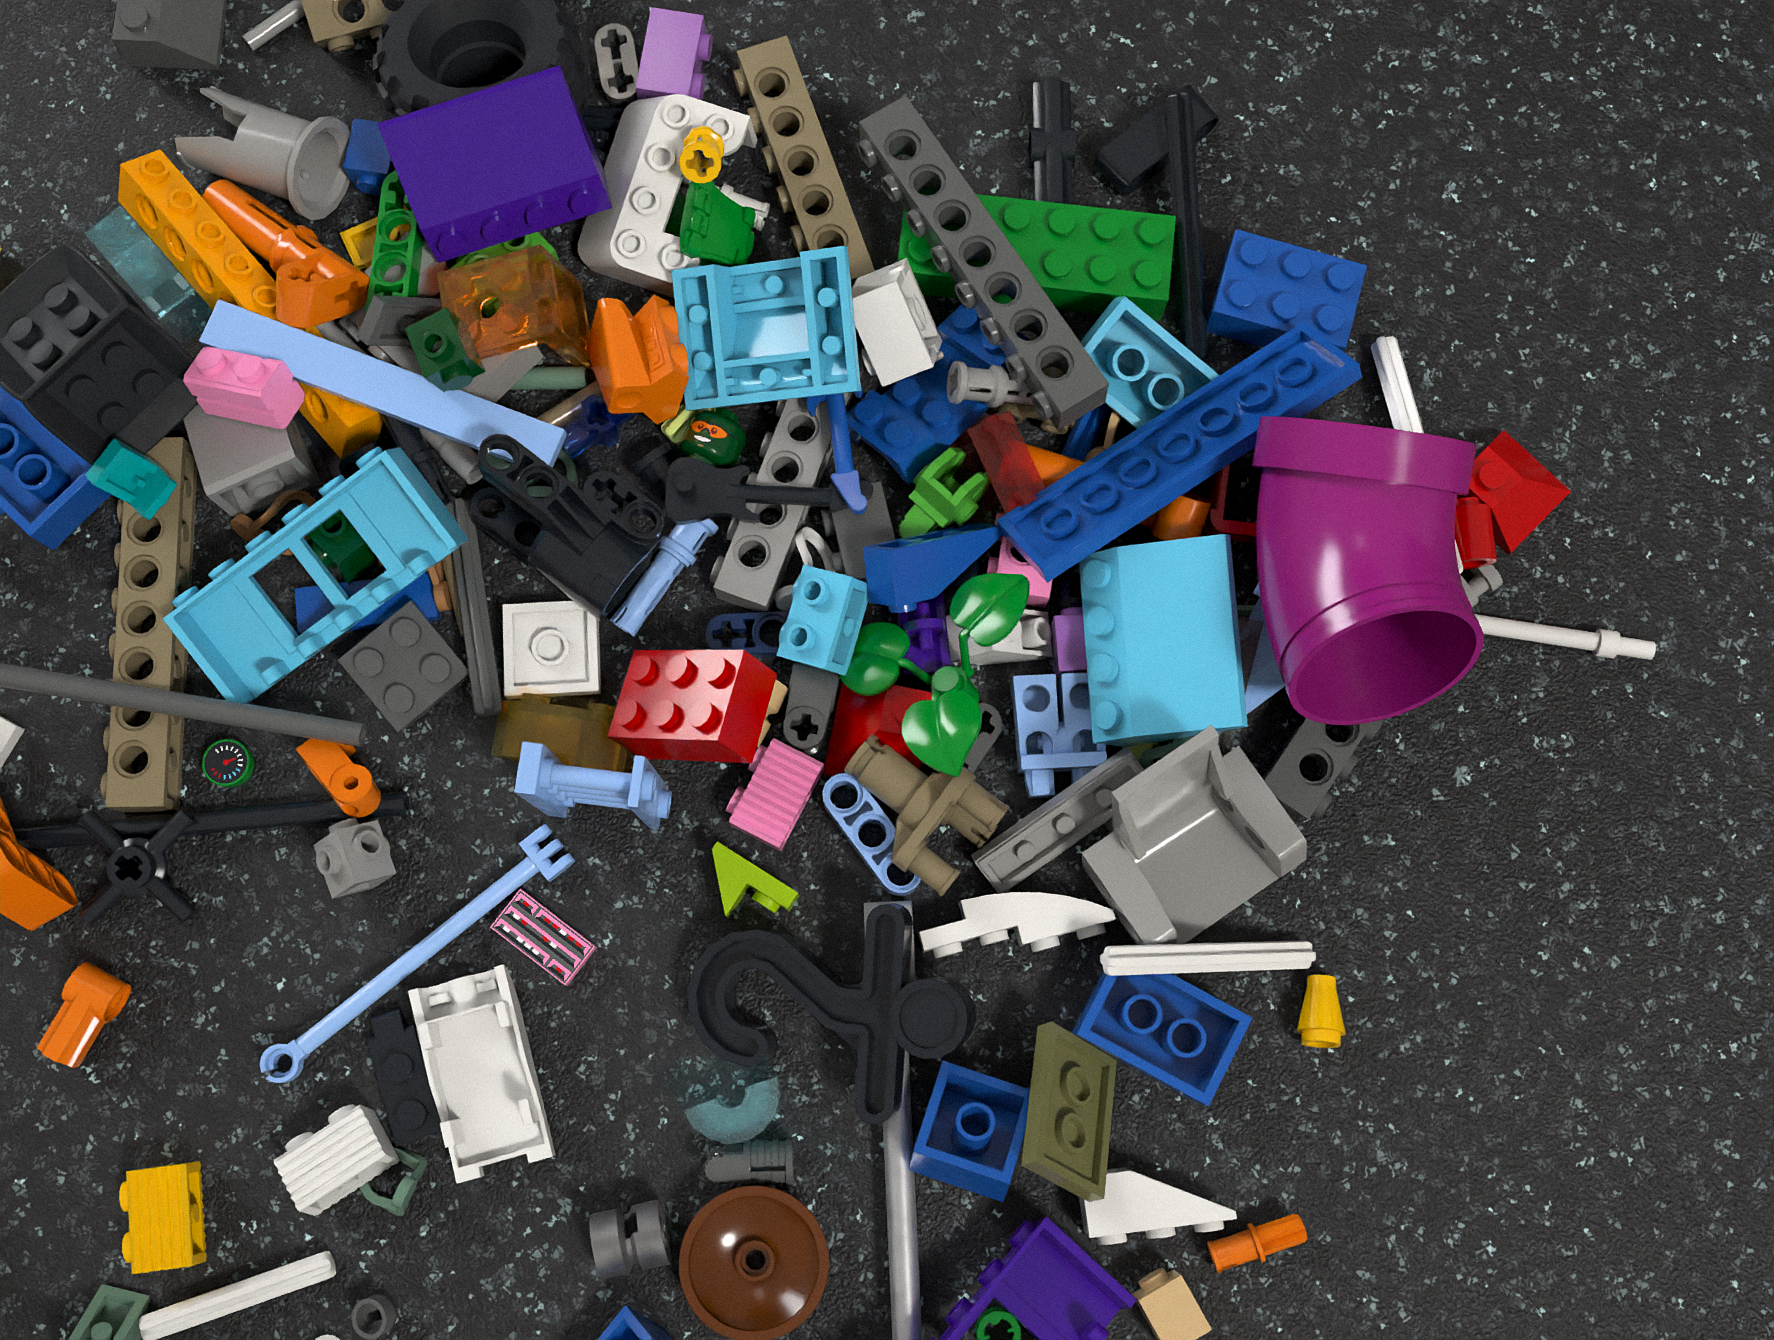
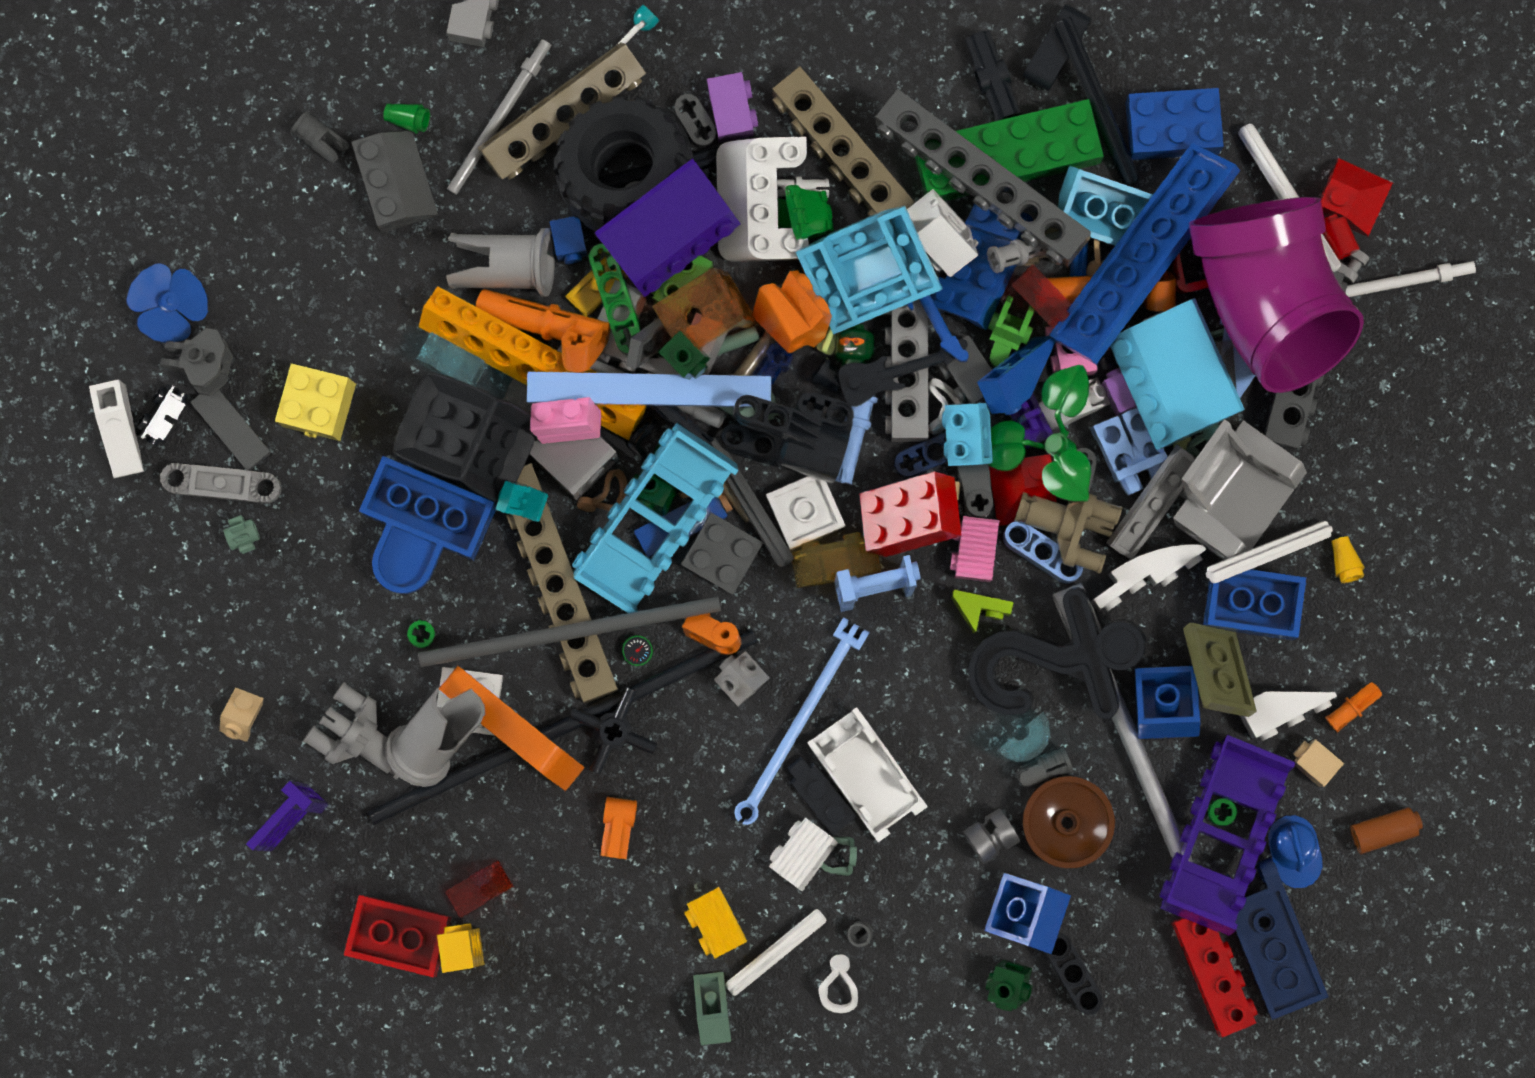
camera: 15 degrees left, 5 degrees up
(543, 937) = (869, 684): tile -> none
(690, 160) = (785, 176): yellow bush -> none

